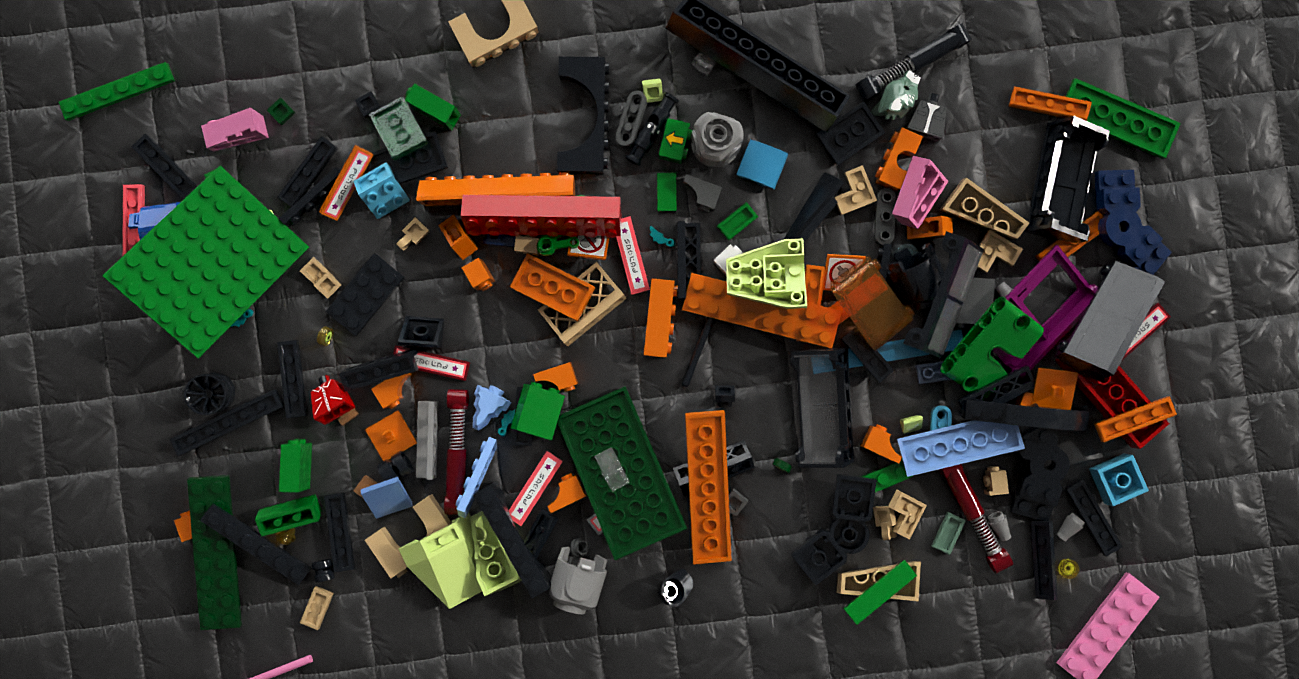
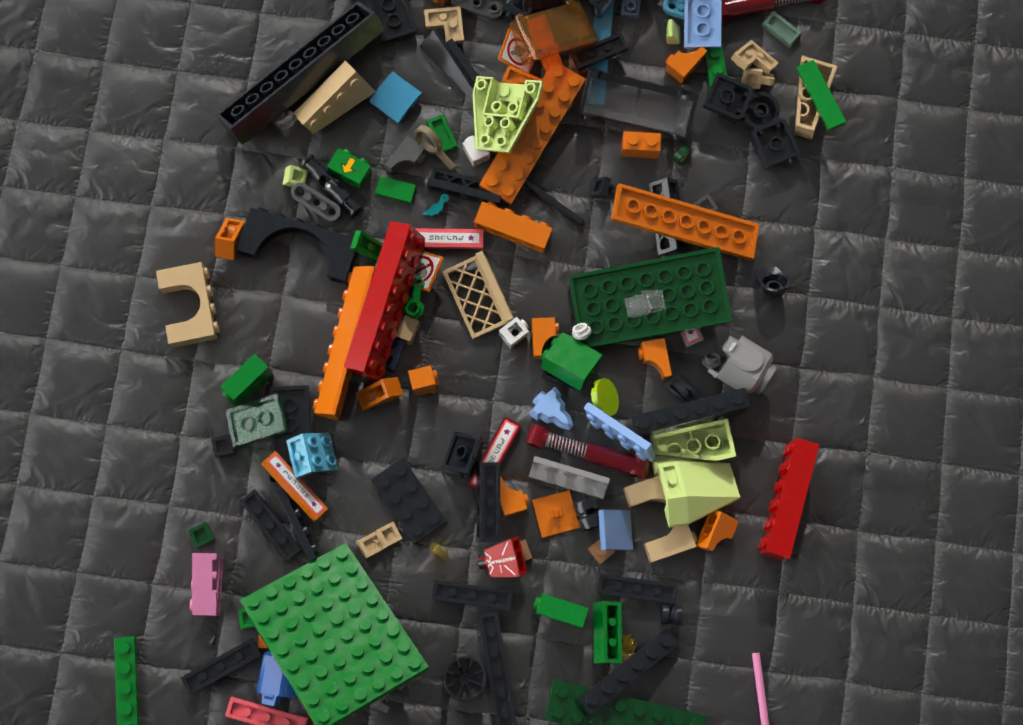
camera: 80 degrees left, 10 degrees down
(316, 608) = (707, 632): tan plate -> none
(412, 593) = (716, 527): none -> orange arch
(415, 232) = (362, 435): tan plate -> none
(458, 657) = (789, 499): none -> red brick
(506, 421) = (570, 396): teal piece -> none
(511, 454) = (605, 396): none -> lime tile
(534, 487) = (639, 384): tile -> none
(546, 348) = (506, 332): none -> white brick
(552, 287) = (455, 316): orange plate -> none
(569, 413) = (581, 331): none -> white plate
(570, 45) = (228, 238): none -> orange arch
(598, 181) = (366, 245): none -> green plate
(712, 148) = (366, 134): light grey piece -> none
(720, 216) = (437, 150): none -> dark tan piece
(744, 104) = (333, 98): none -> tan wedge
(780, 422) = (640, 145): none -> orange brick

